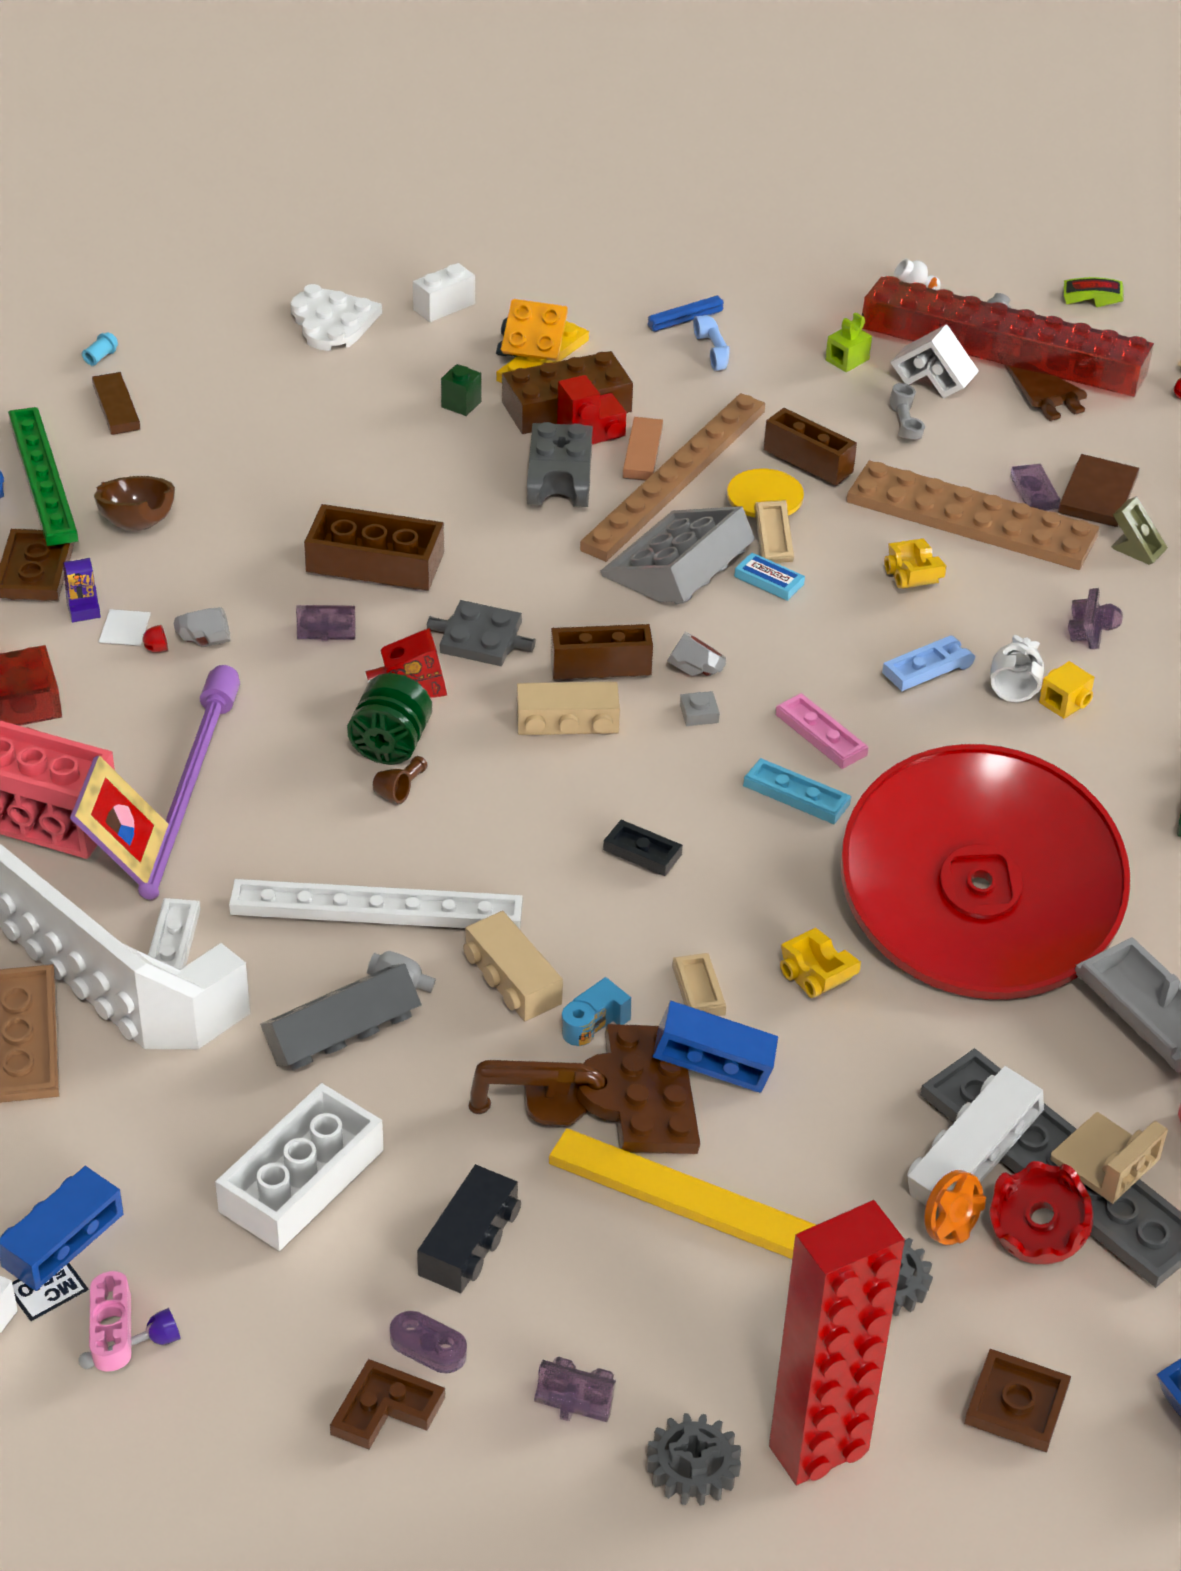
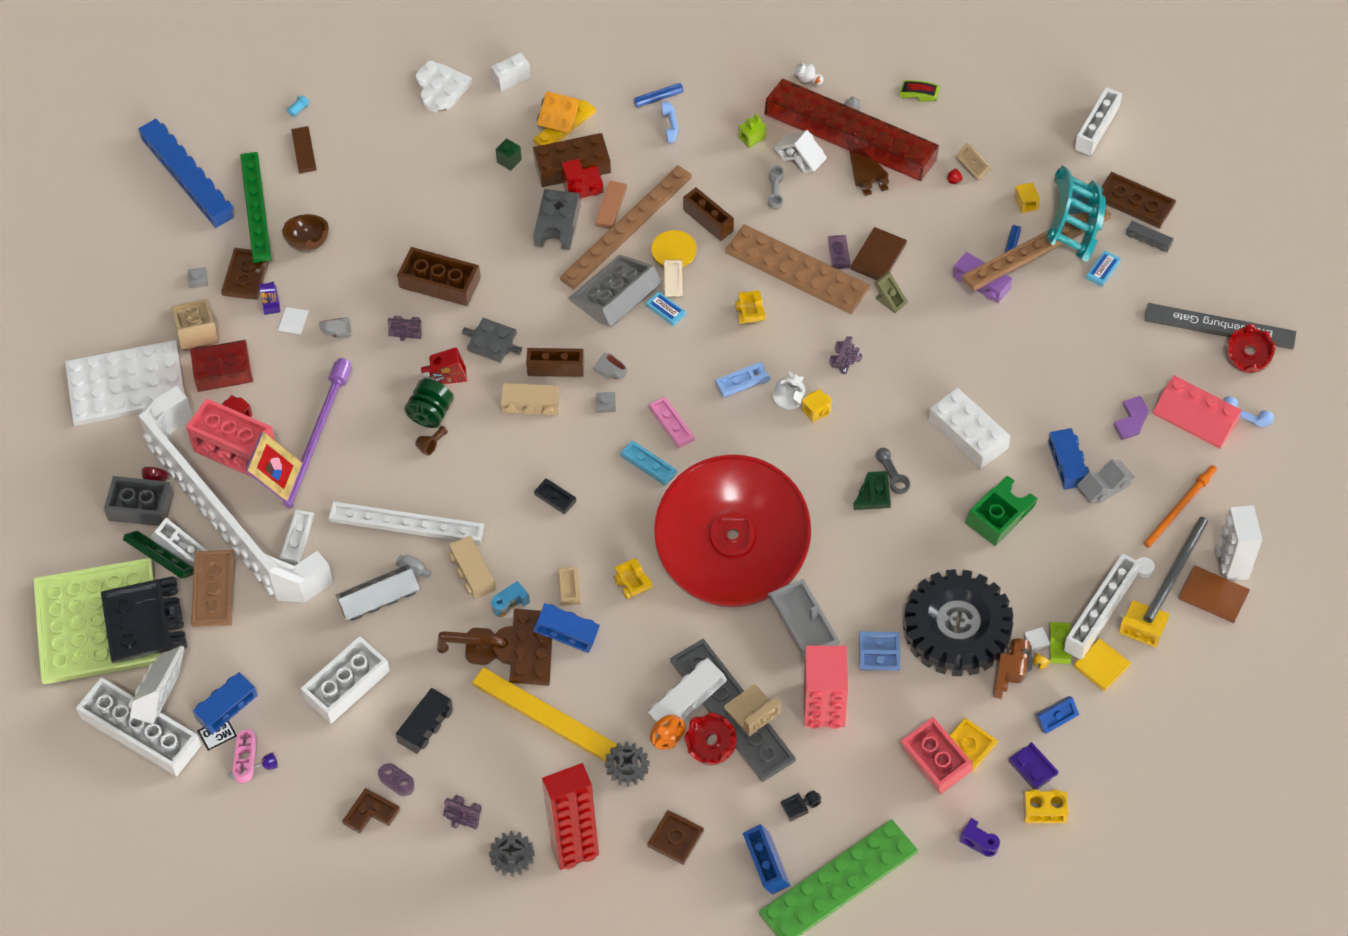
camera: 10 degrees right, 15 degrees up
(155, 639) = (309, 332): red hinge -> none

